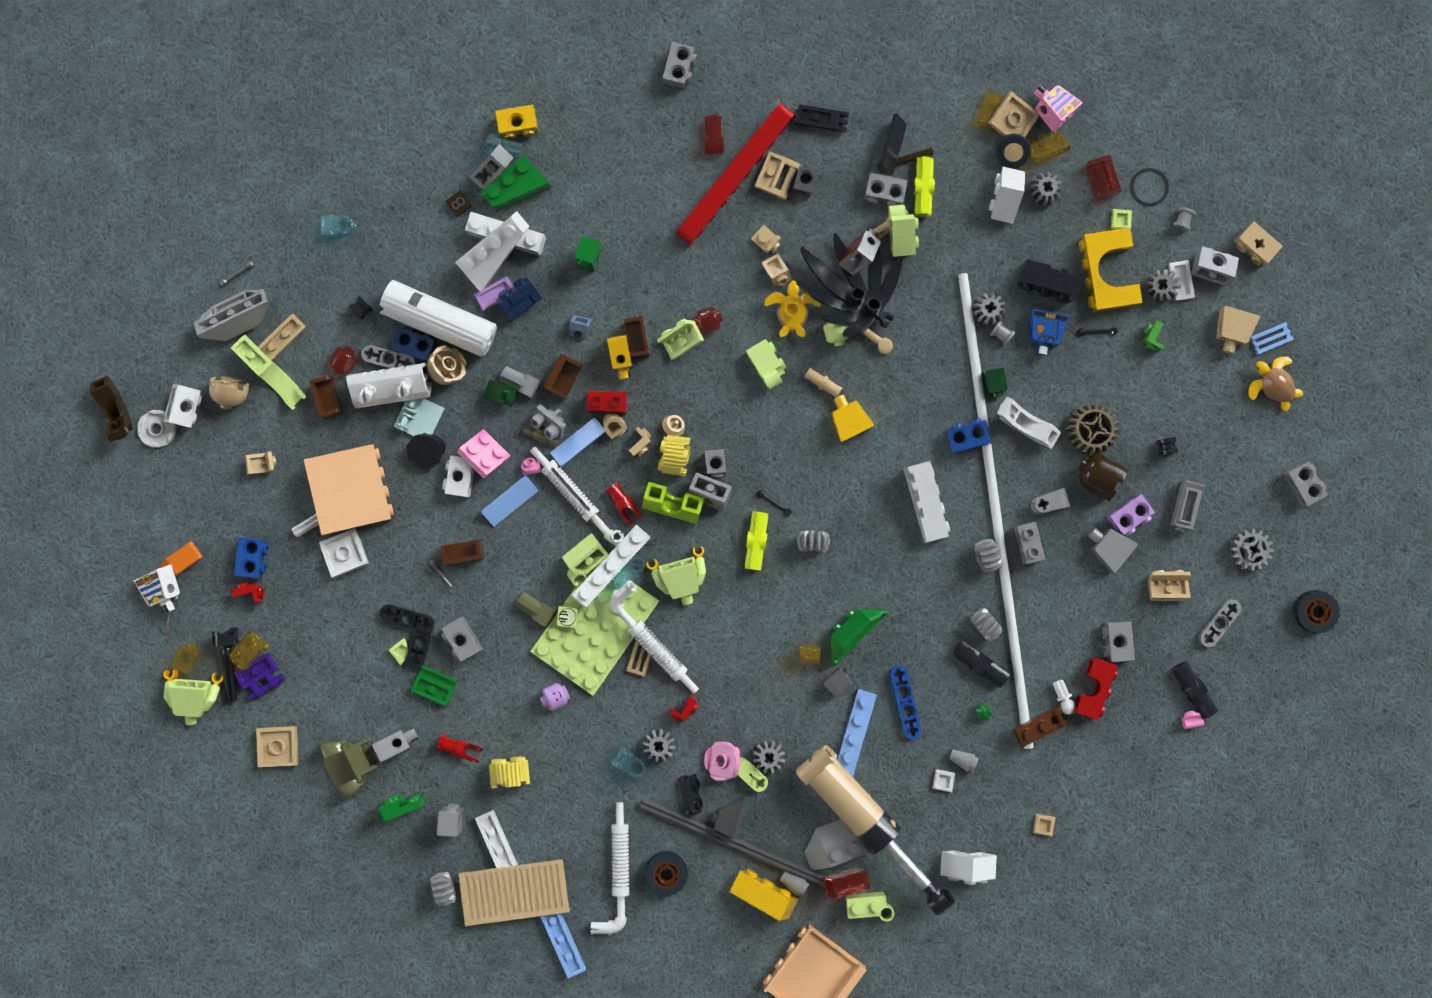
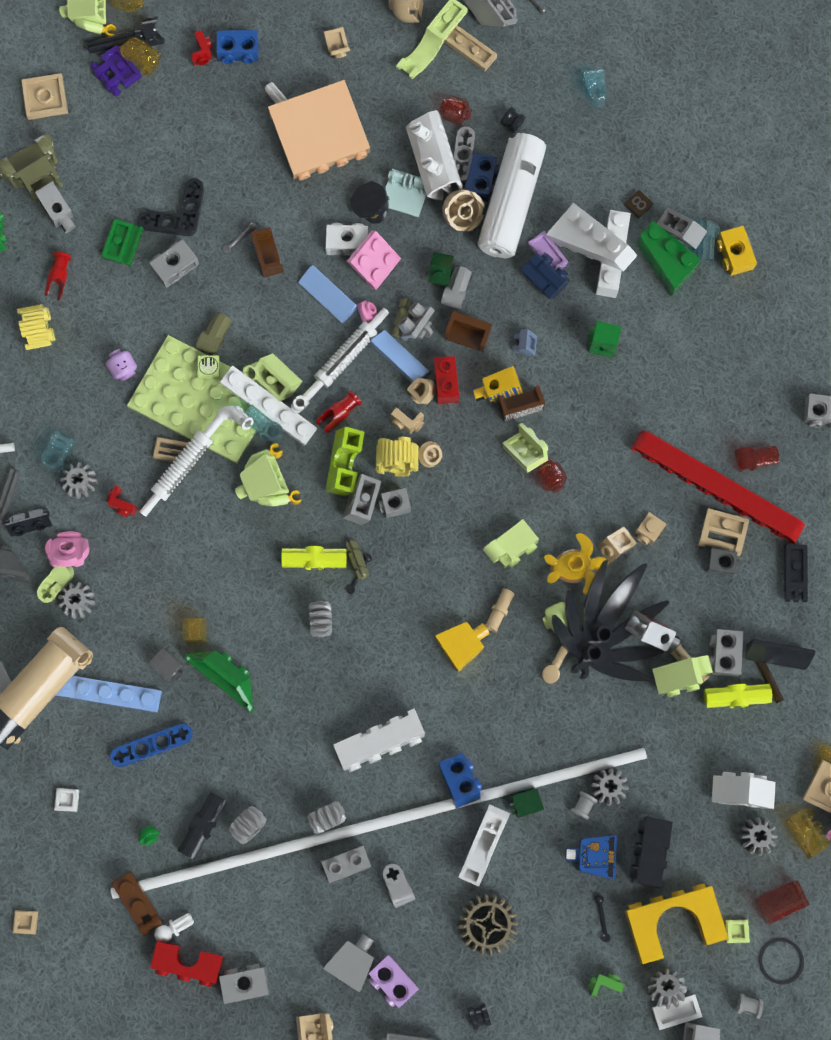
camera: 80 degrees right, 10 degrees down
(326, 397) = (413, 97): reddish brown panel -> none
(344, 553) = (252, 136): white plate -> none
(400, 651) = (156, 204): yellowish green tile -> none
(763, 502) = (357, 559): none -> olive axle
(965, 760) = (91, 820): light grey cone -> none
(1013, 150) = (795, 792): black wheel -> none
(1101, 475) = (434, 938): dark brown cylinder -> none

